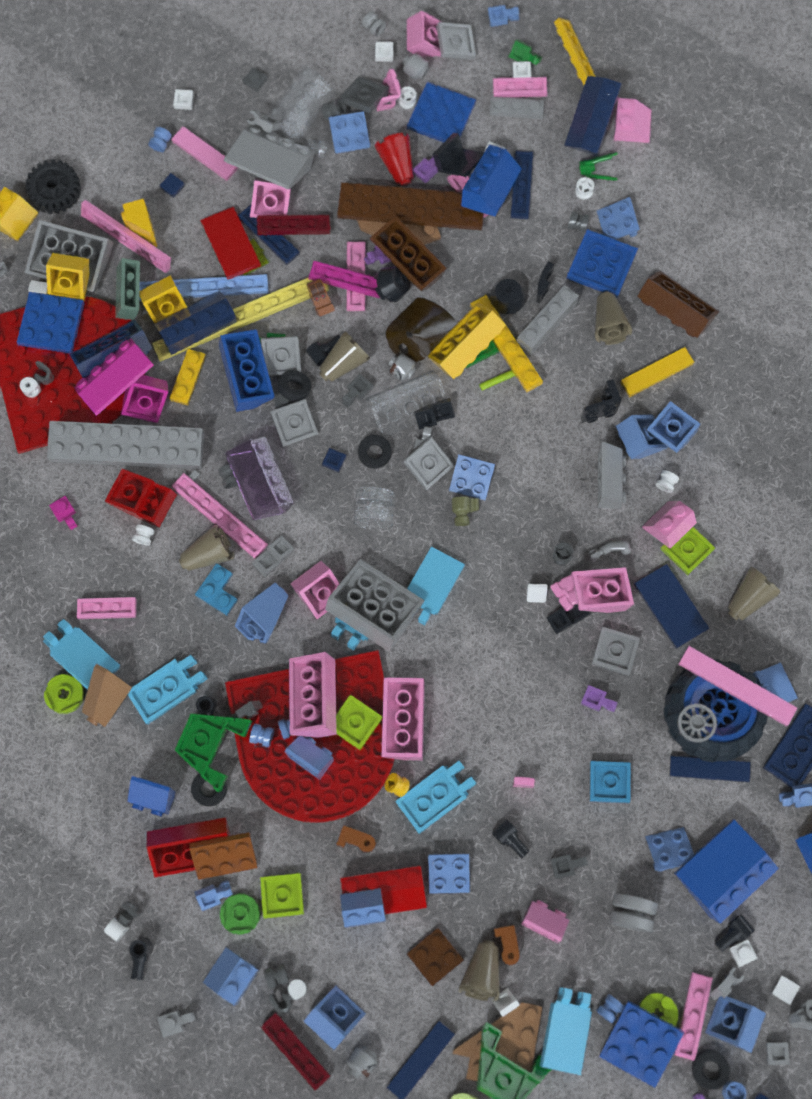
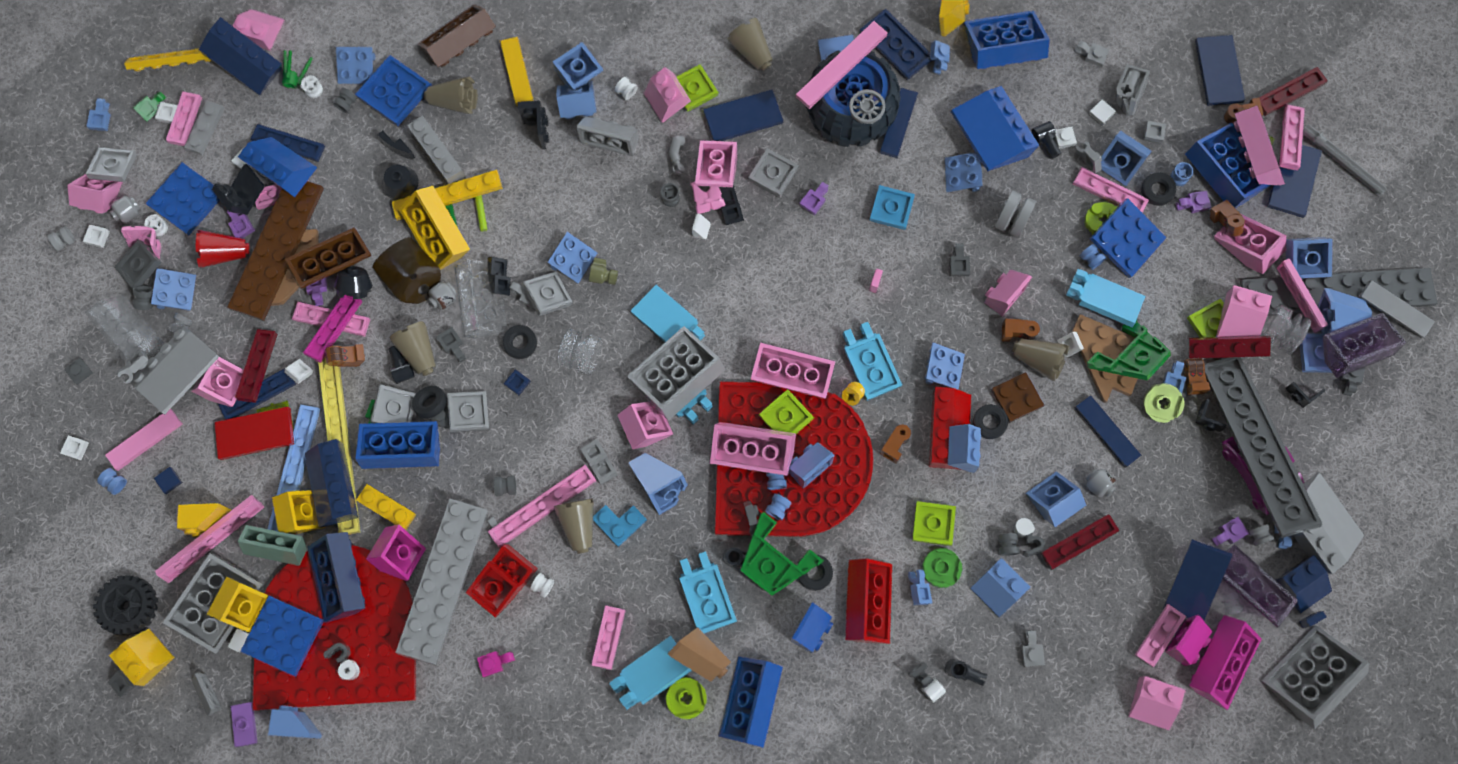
camera: 75 degrees left, 0 degrees up
(71, 755) = (751, 701): none -> blue slope
(113, 376) = (368, 574): dark pink slope -> none
(223, 855) = (885, 569): dark orange plate -> none
(259, 479) = (517, 454): clear purple slope -> none
(298, 263) = (298, 371): none -> white tile
(411, 942) = (996, 411): none -> black tyre
(508, 836) = (921, 307): black pin -> none

